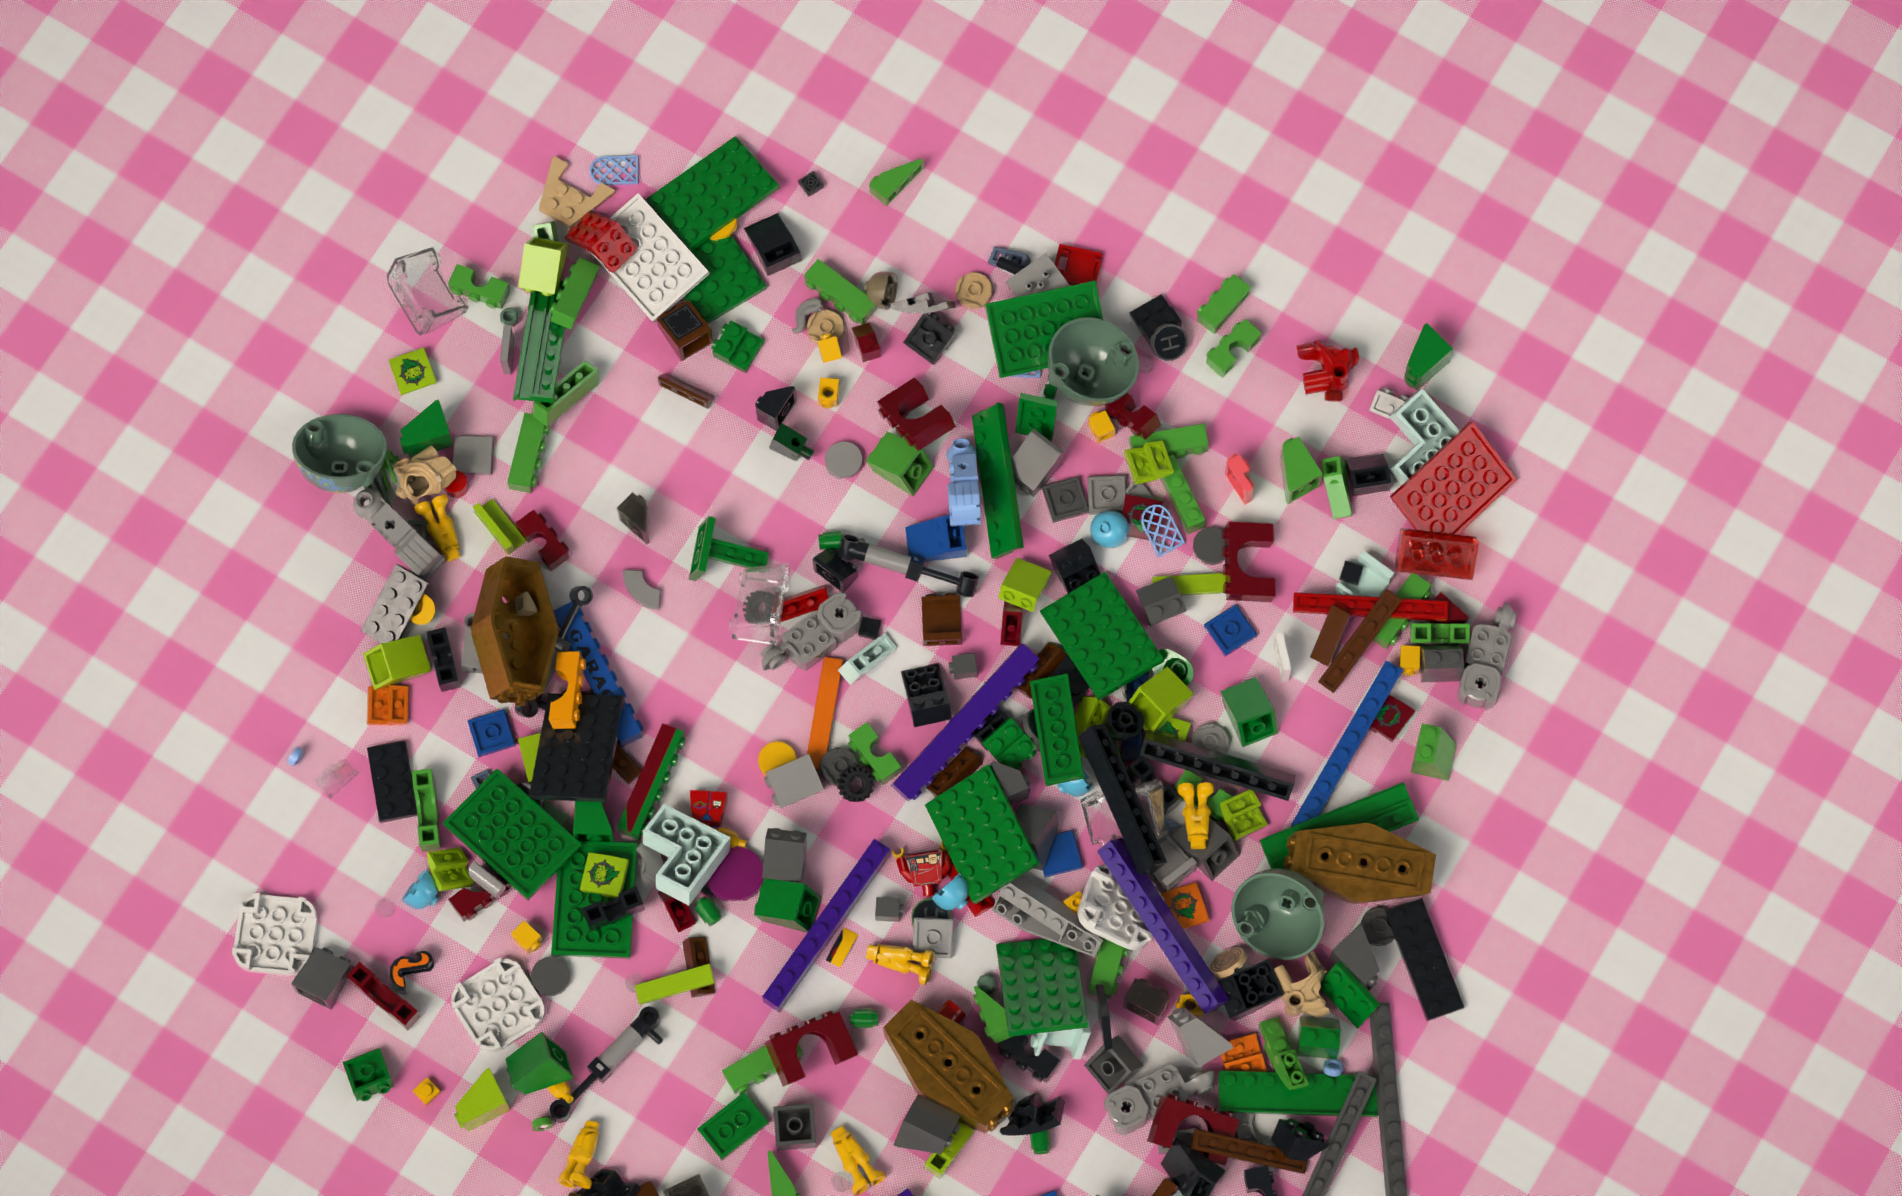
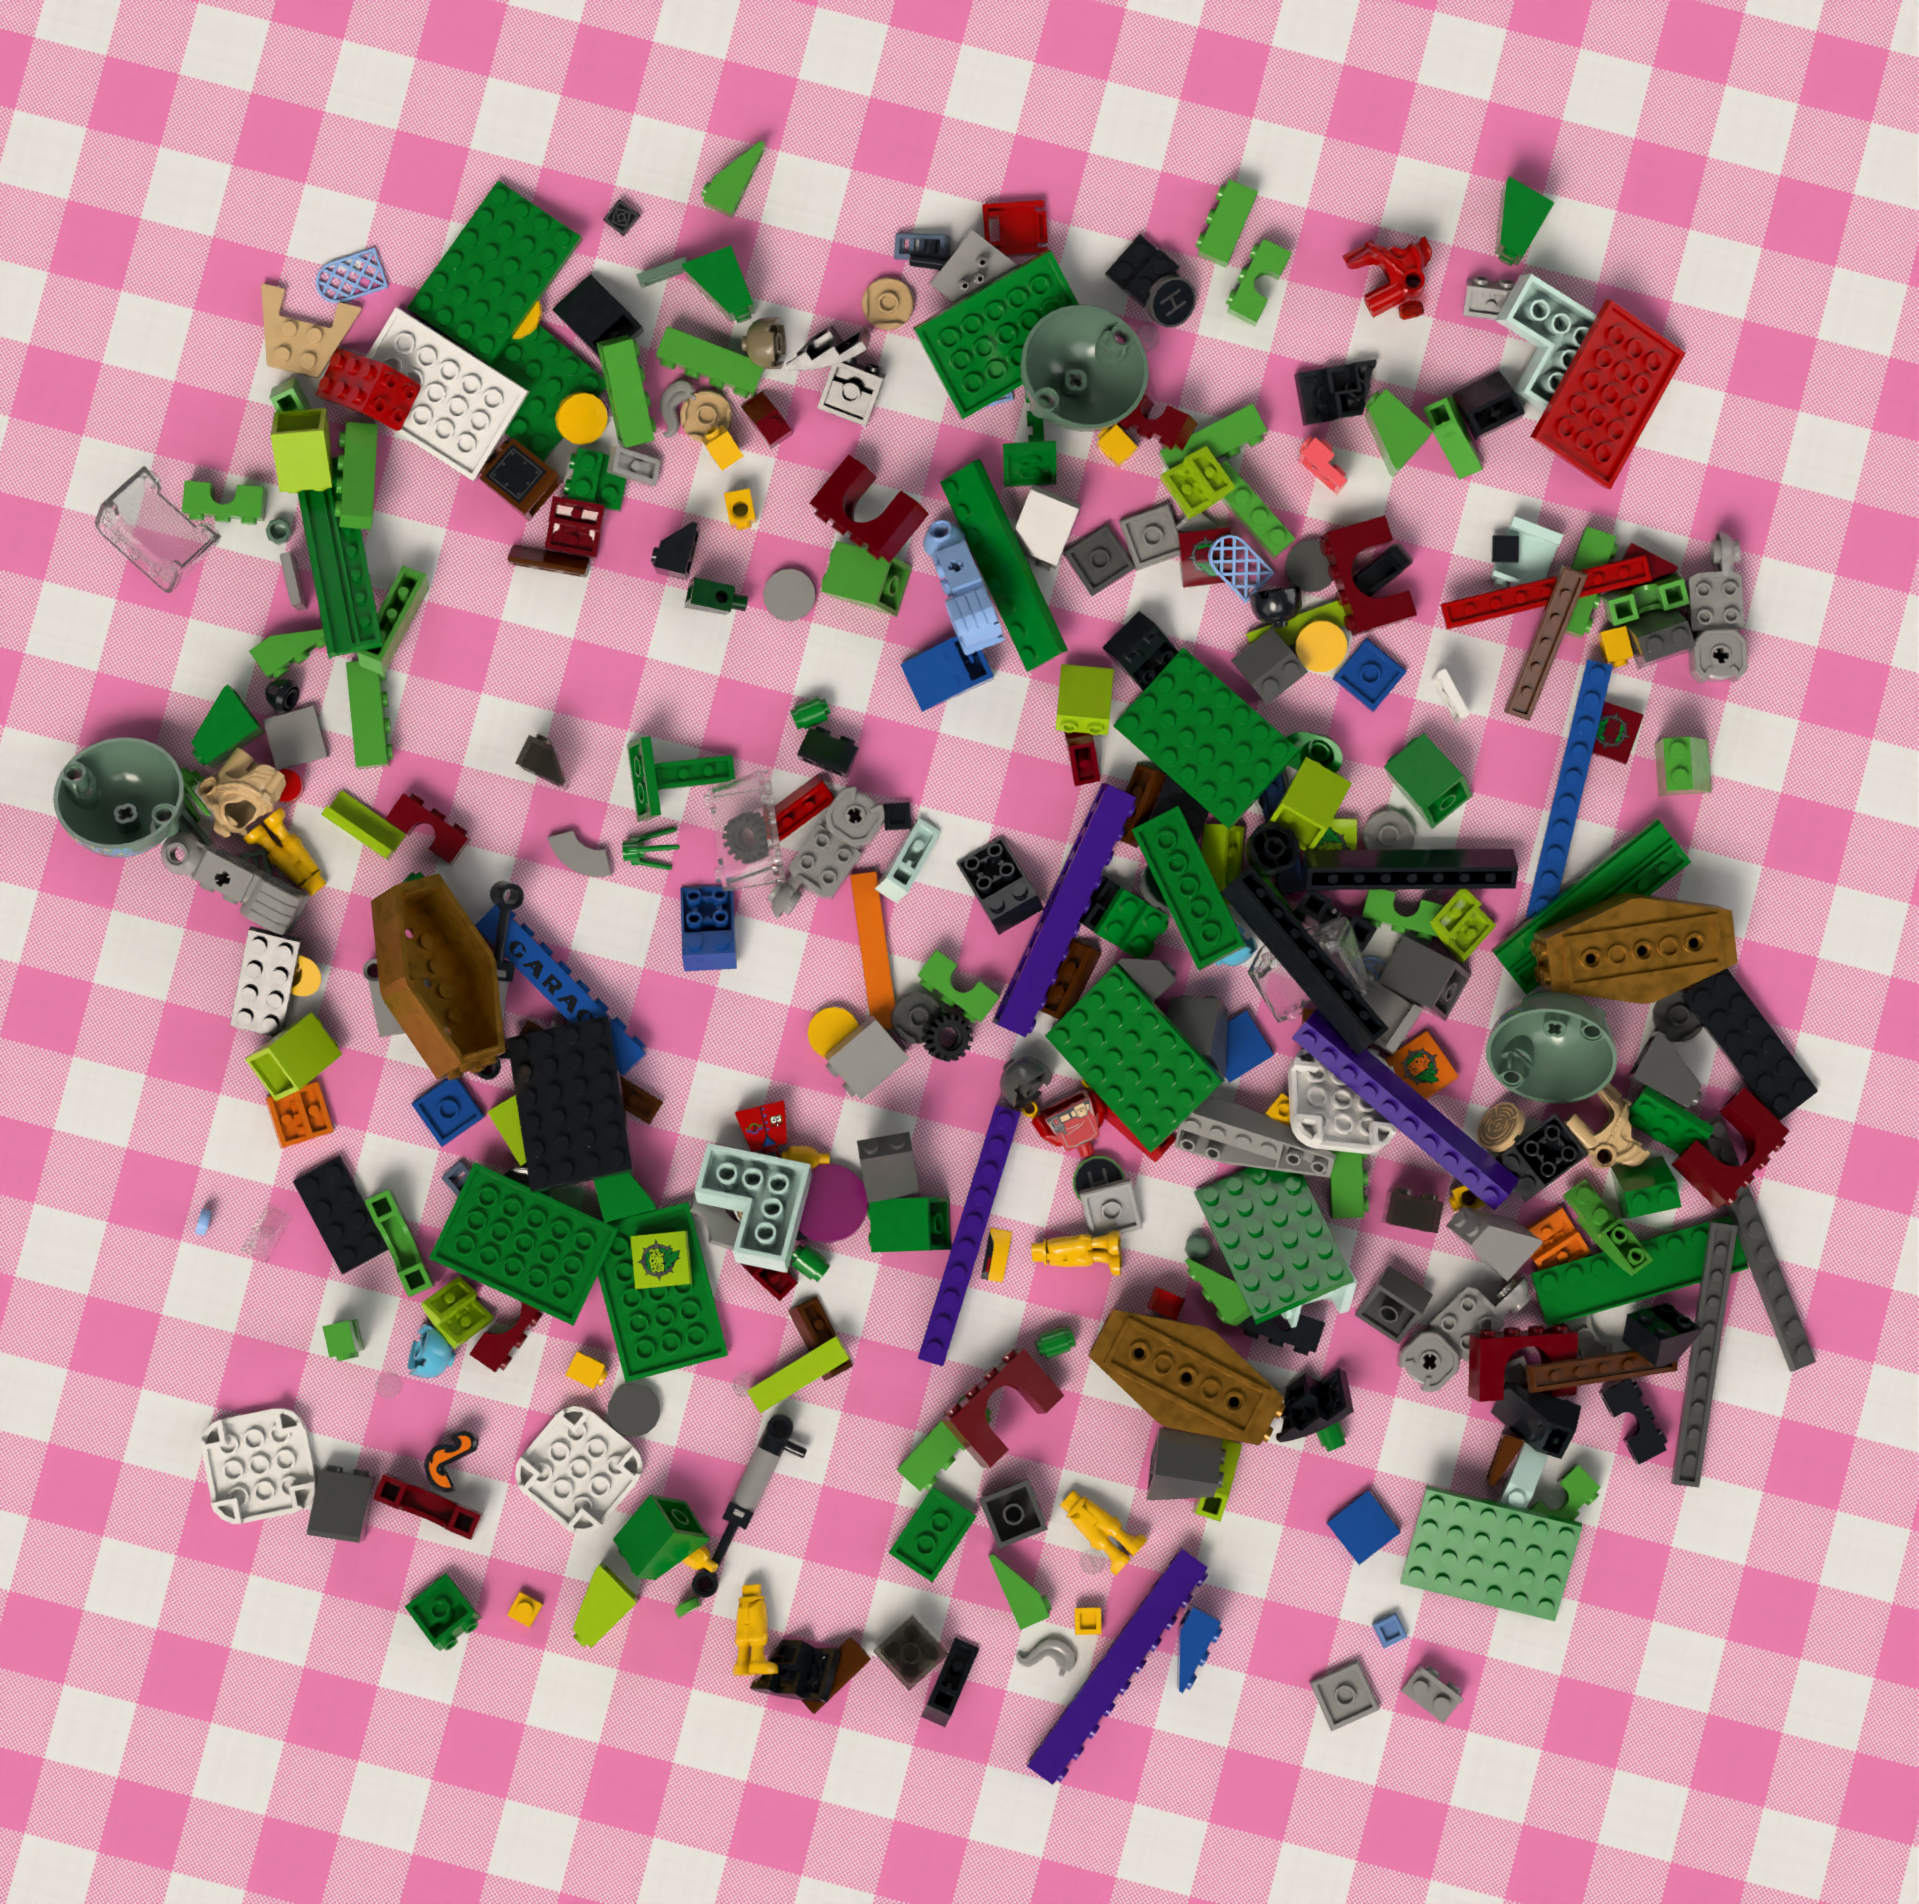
camera: 20 degrees left, 15 degrees up
(364, 860) = (343, 1339): none -> bright green arch
(412, 371) = (175, 646): lime slope -> none
(443, 659) = (353, 1033): black arch -> none
(474, 423) = (282, 695): none -> black cone
(486, 394) = (283, 650): none -> bright green slope
(486, 880) = (507, 1313): light grey brick -> none
(525, 605) = (438, 934): dark tan slope -> none
(565, 711) = (539, 1063): light orange arch -> none
(603, 914) = (688, 1303): black arch -> none
(651, 781) = (679, 1113): brick -> none
(681, 595) = (634, 849): none -> green plant
(711, 371) = (574, 526): none -> dark red slope
(713, 663) = (708, 928): none -> blue slope
(739, 302) = (581, 418): none -> yellow tile
(764, 343) = (633, 466): none -> light grey plate
(775, 291) = (626, 391): none -> bright green brick
(827, 225) = (661, 272): none -> sand green tile
(856, 548) = (845, 717): black piece -> none
(863, 241) = (722, 283): none -> green slope
(888, 909) = (1042, 1189): dark grey brick -> none
(900, 830) = (1023, 1079): none -> dark grey cylinder
(941, 620) = (988, 777): reddish brown panel -> none
(952, 894) = (1118, 1146): medium azure cylinder -> none
(963, 666) = (1036, 832): dark grey brick -> none
(1104, 1017) = (1366, 1253): black tile -> none
(1109, 529) = (1171, 586): medium azure cylinder -> none
(1179, 561) = (1276, 605): none -> black cylinder
(1196, 819) = (1406, 953): yellow piece -> none
(1201, 599) = (1320, 645): none -> yellow tile
(1261, 561) = (1383, 570): none -> black animal
(1263, 435) = (1334, 392): none -> black slope
(1330, 635) = (1505, 646): reddish brown slope -> none
(1333, 1067) = (1674, 1222): light blue tile -> none
(1373, 1043) = (1761, 1135): none -> dark red arch
(1436, 554) = (1611, 493): clear red brick -> none

